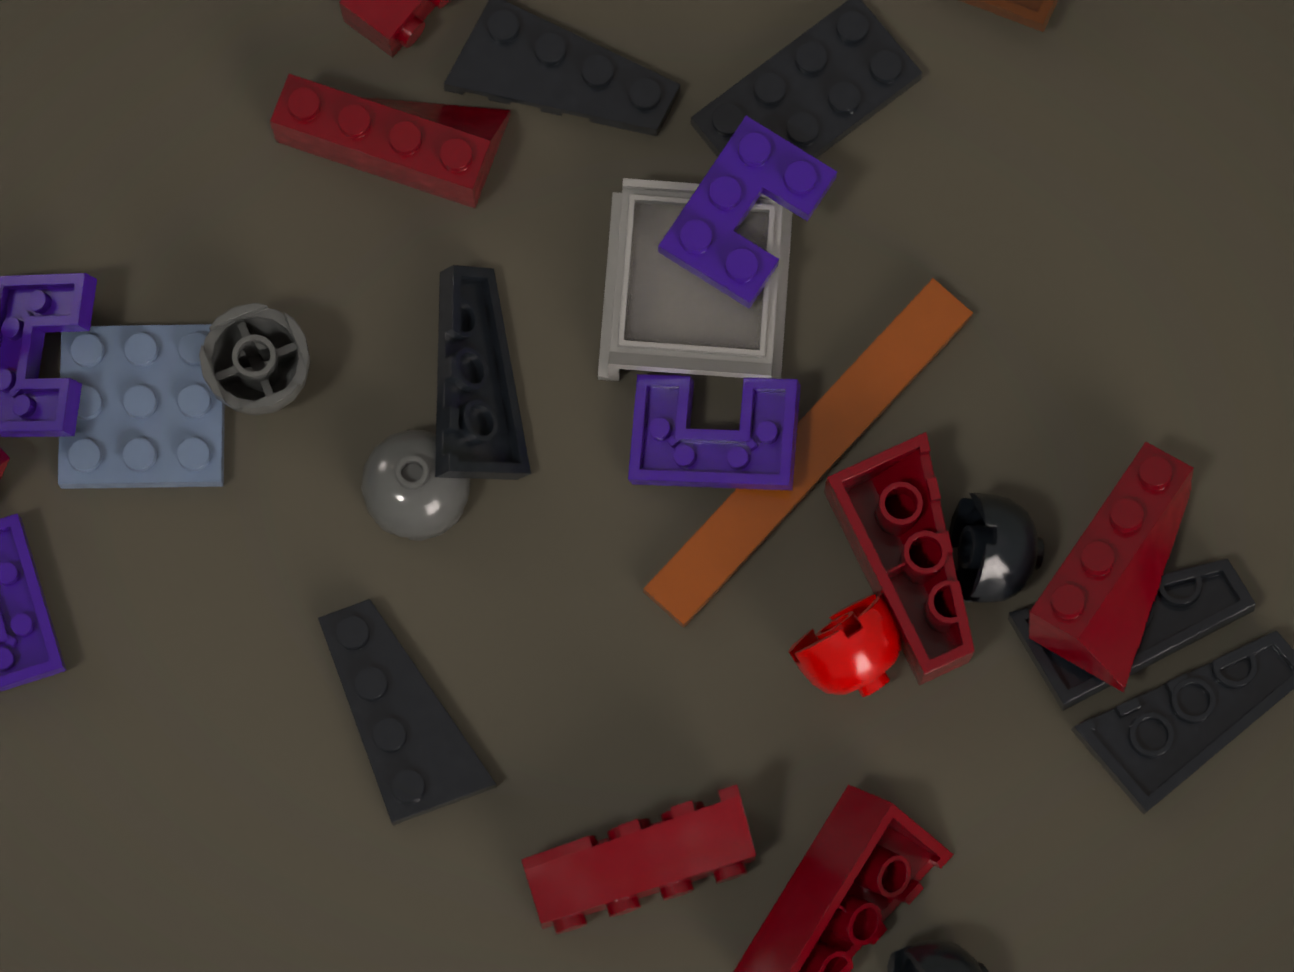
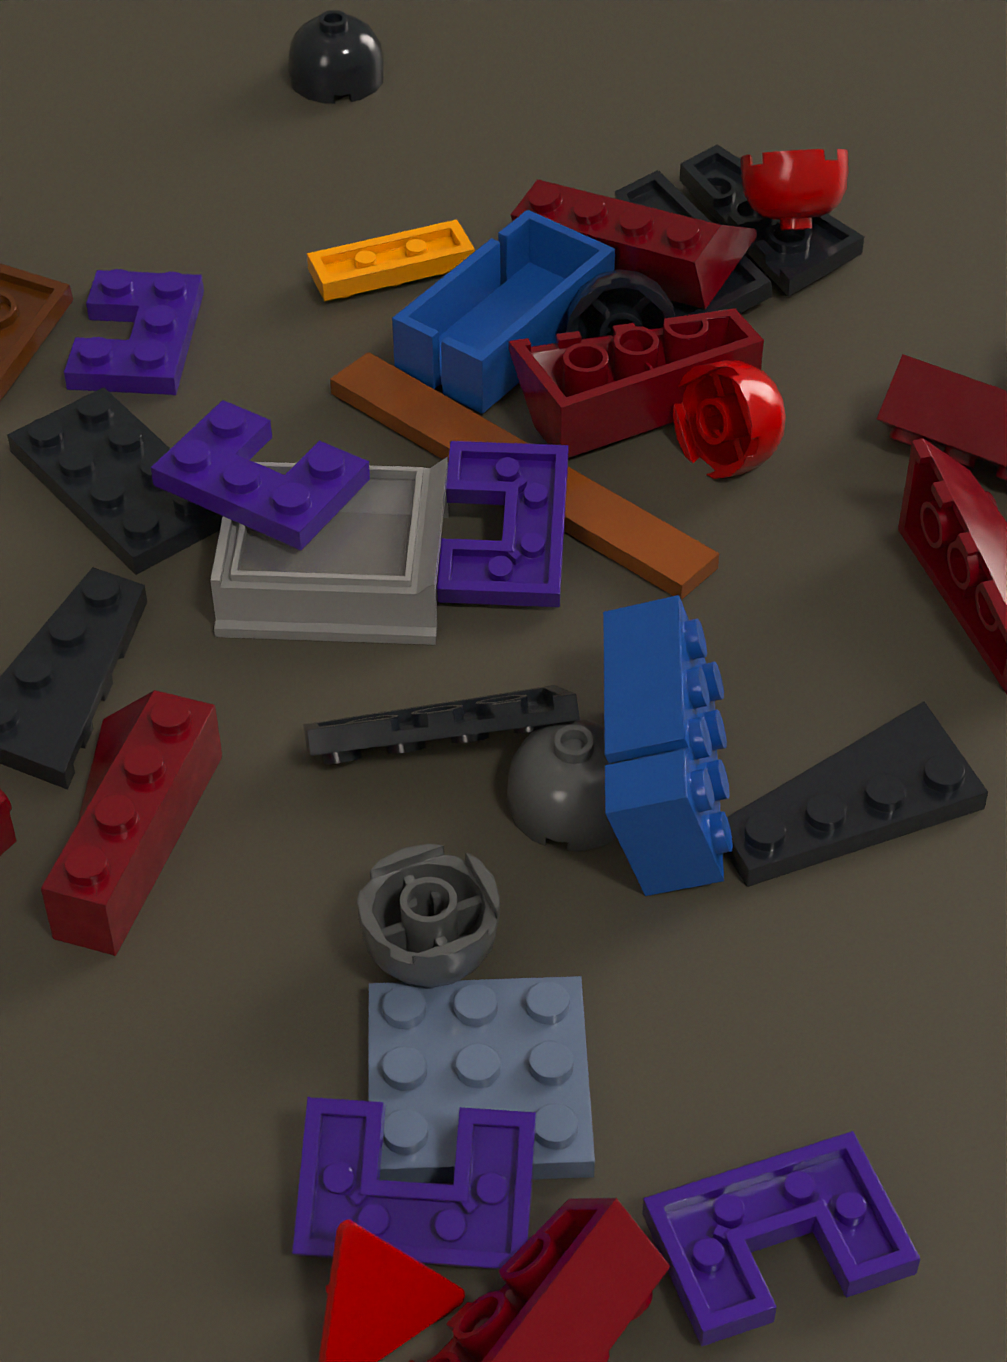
camera: 90 degrees left, 30 degrees down
(418, 547) = (665, 715): none -> blue piece
(1011, 435) = (498, 294): none -> blue piece
(1052, 123) = (154, 356): none -> dark purple plate
(1119, 333) = (389, 260): none -> light orange plate
(1188, 729) = (795, 185): none -> red cylinder

